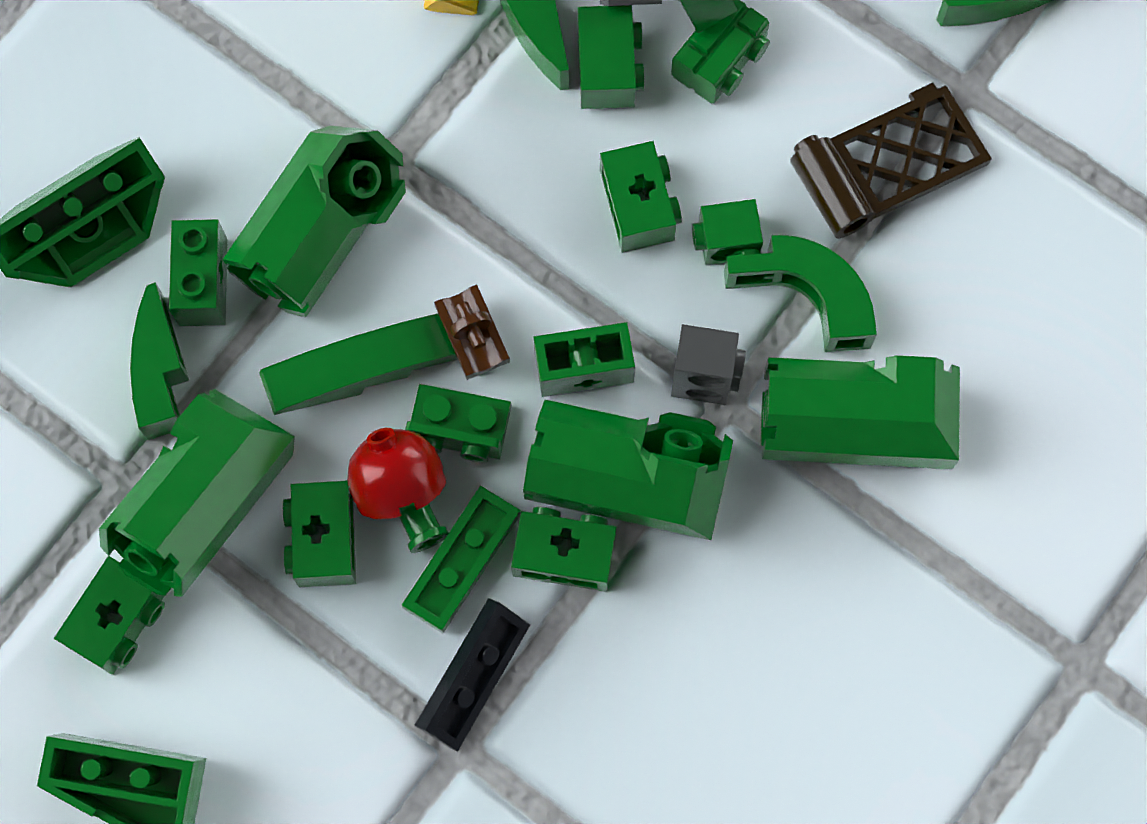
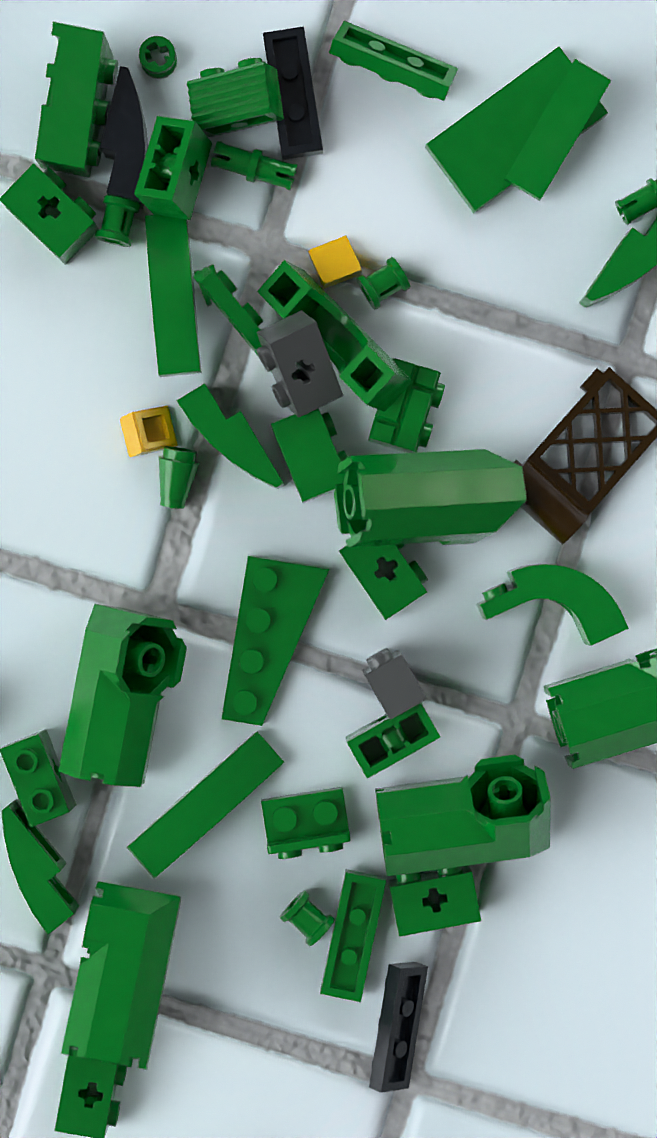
camera: 20 degrees left, 15 degrees up
(334, 558) = (232, 935): green brick -> none
(393, 472) = (276, 896): red cylinder -> none
(464, 35) = (176, 475): none -> green cone
(472, 332) = (289, 745): reddish brown hips -> none
(498, 215) = (269, 625): none -> green wing
(606, 292) = (393, 682): none -> dark grey brick
(707, 365) = (497, 708): dark grey brick -> none
(711, 123) = (426, 497): none -> green brick
(727, 229) = (470, 575): green brick -> none

